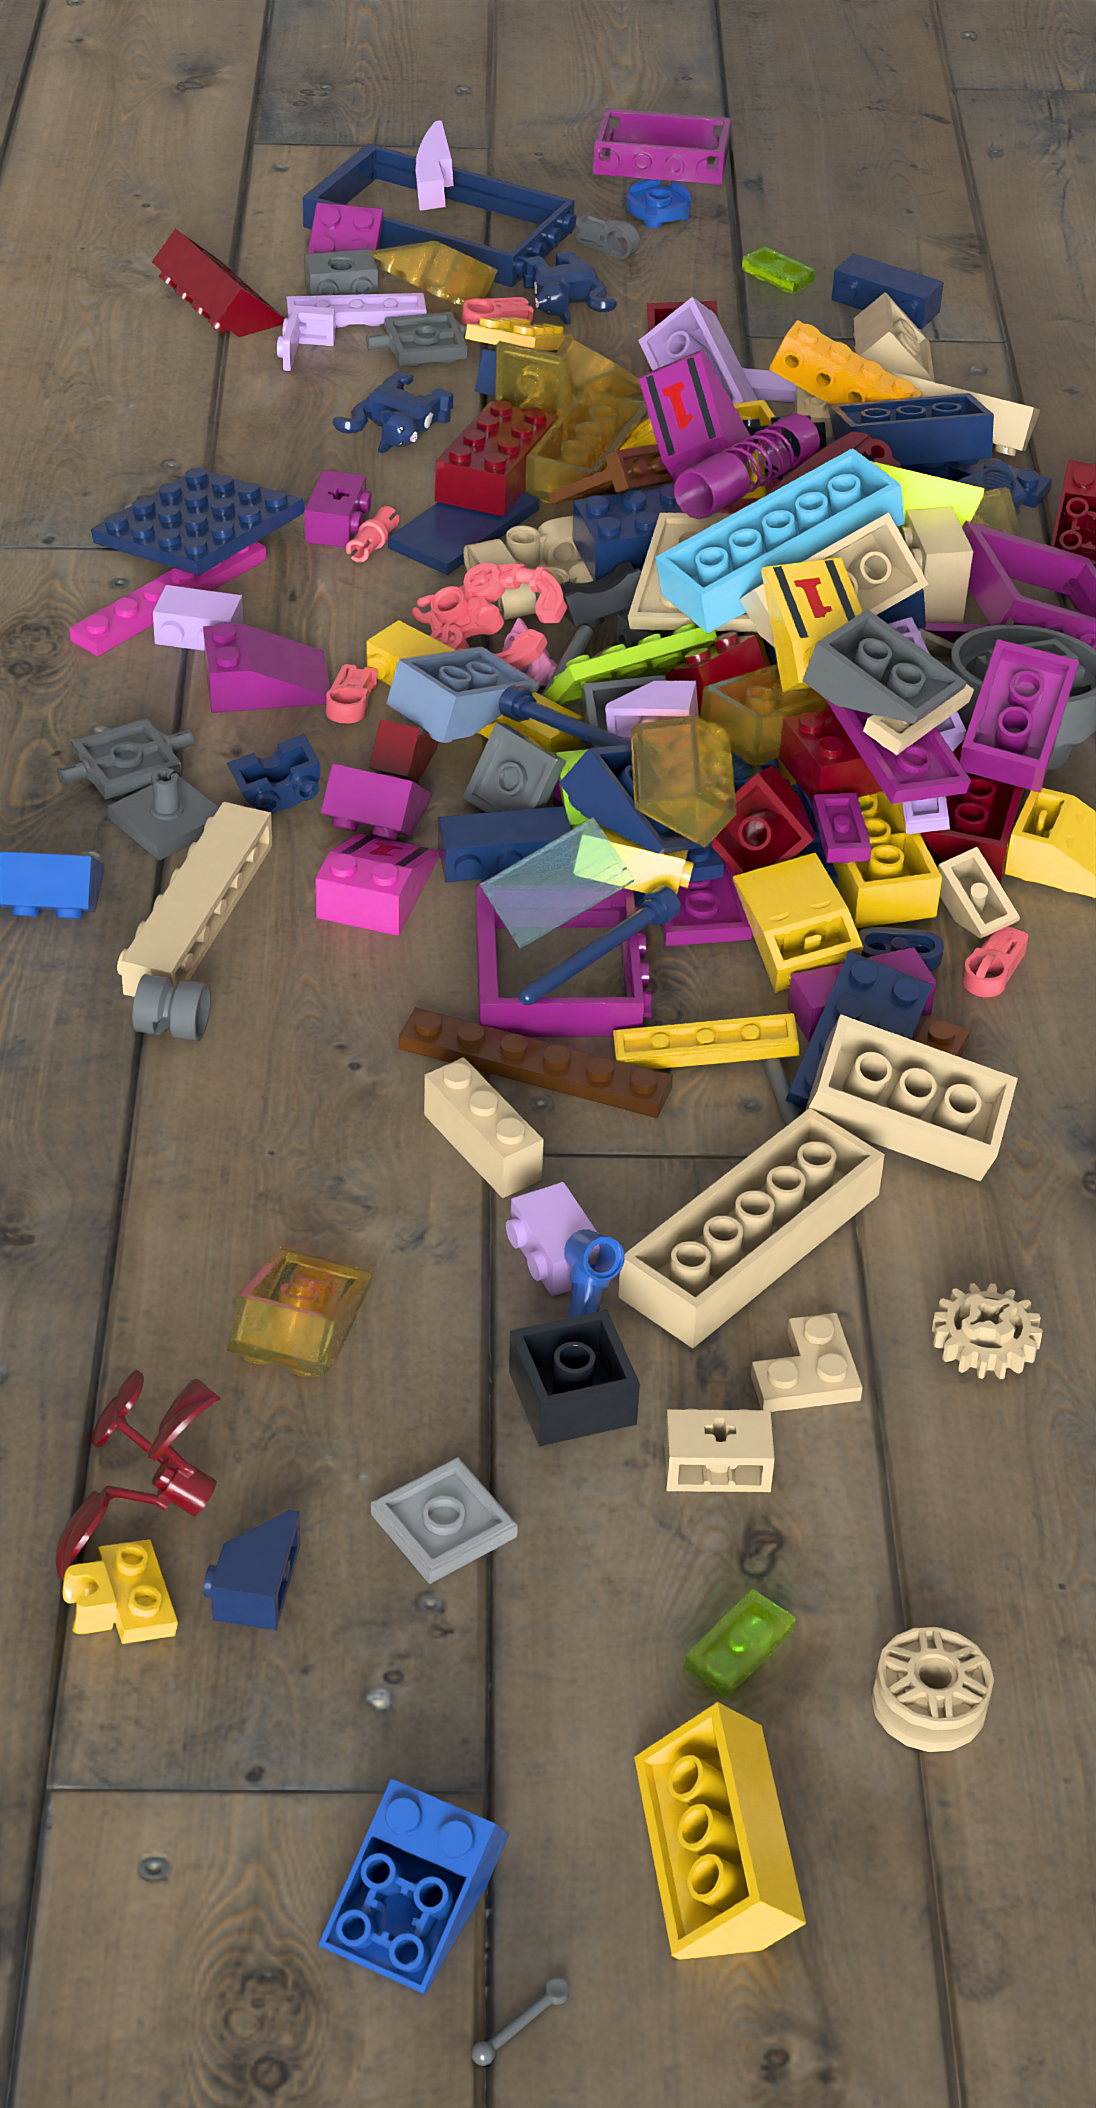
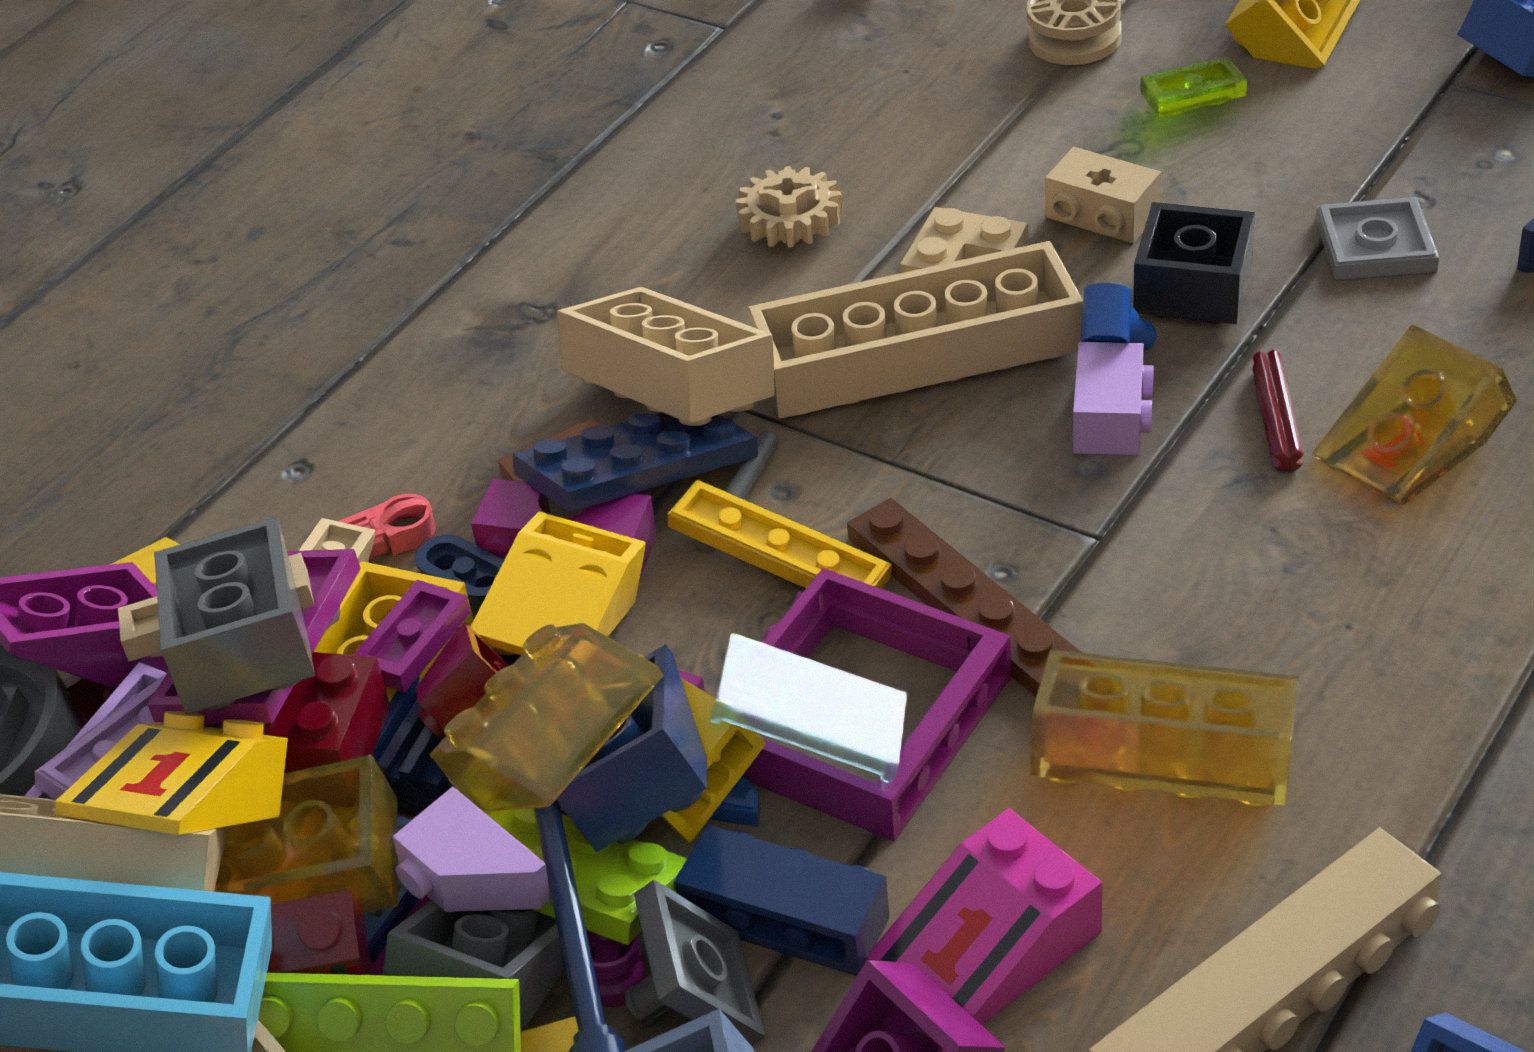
camera: 140 degrees left, 0 degrees up
(177, 1008) = (1381, 795): wheel -> none
(341, 991) = (1164, 727): none -> clear yellow slope
(423, 1295) = (1277, 411): none -> dark red axle
(483, 1127) = (1104, 526): tan brick -> none
(657, 908) = (705, 662): dark blue piece -> none

